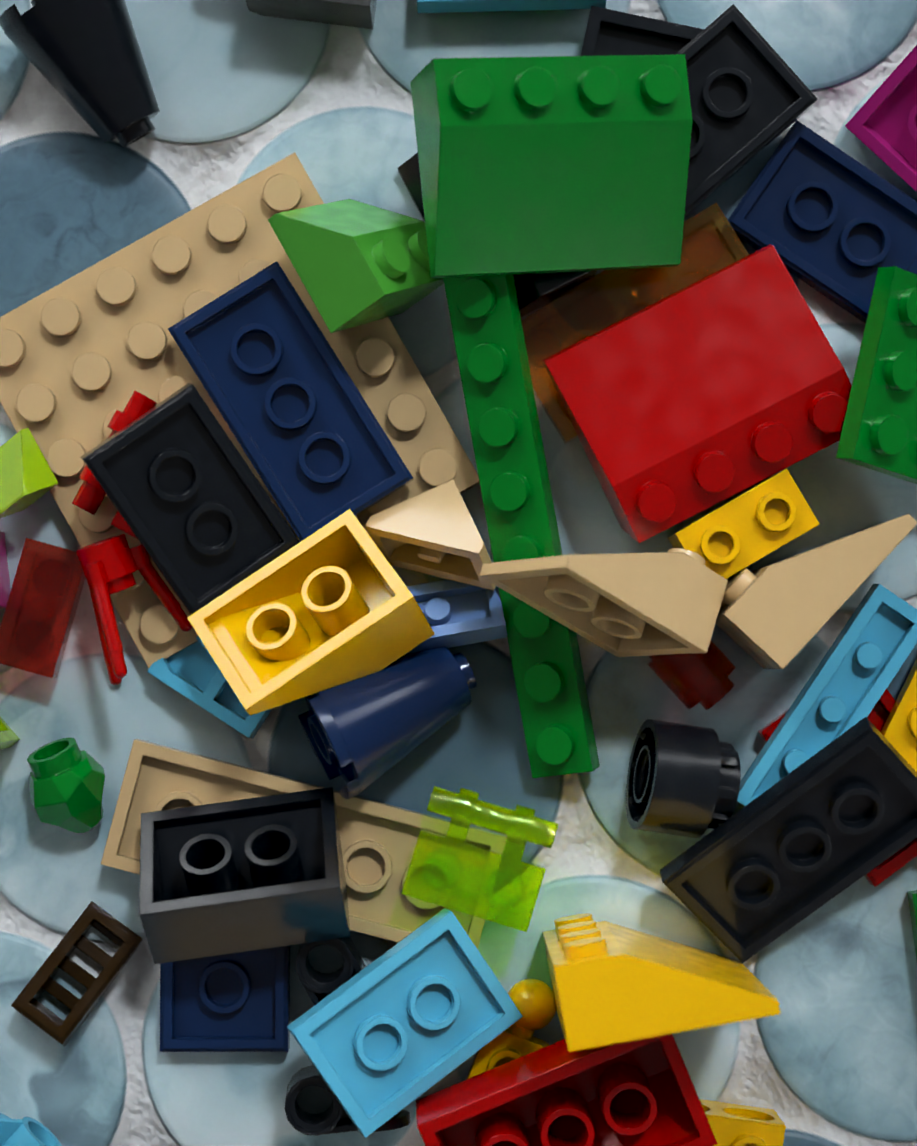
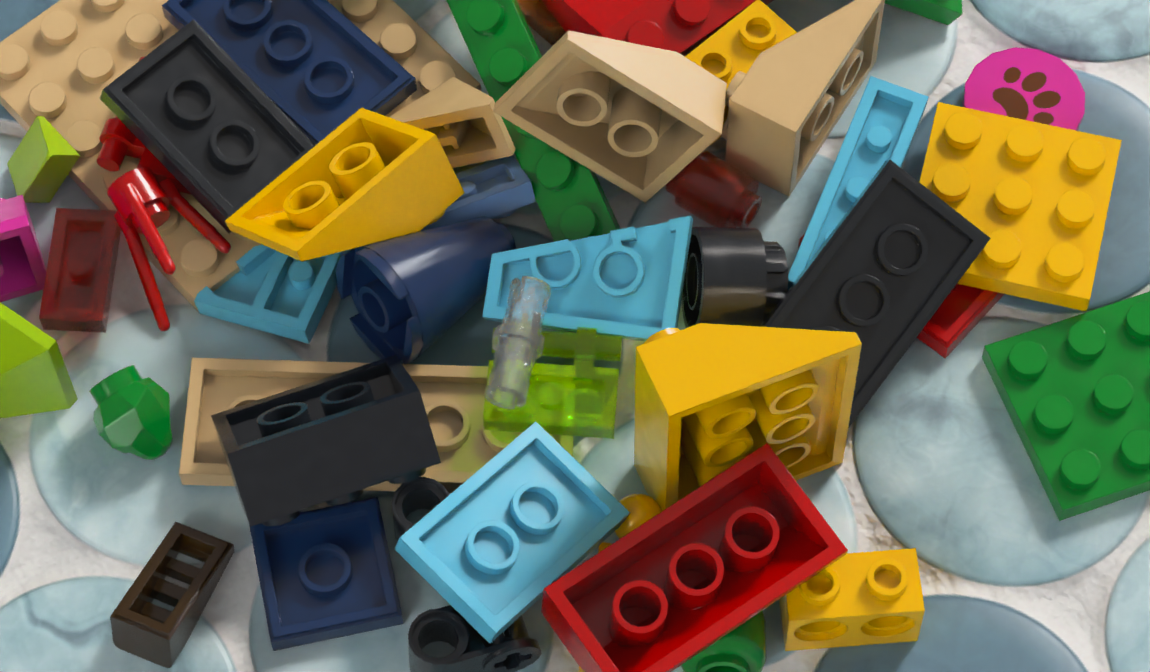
camera: 10 degrees left, 25 degrees down
(450, 832) = (518, 342): none -> clear pin
(548, 766) = (611, 282): none -> medium azure wing

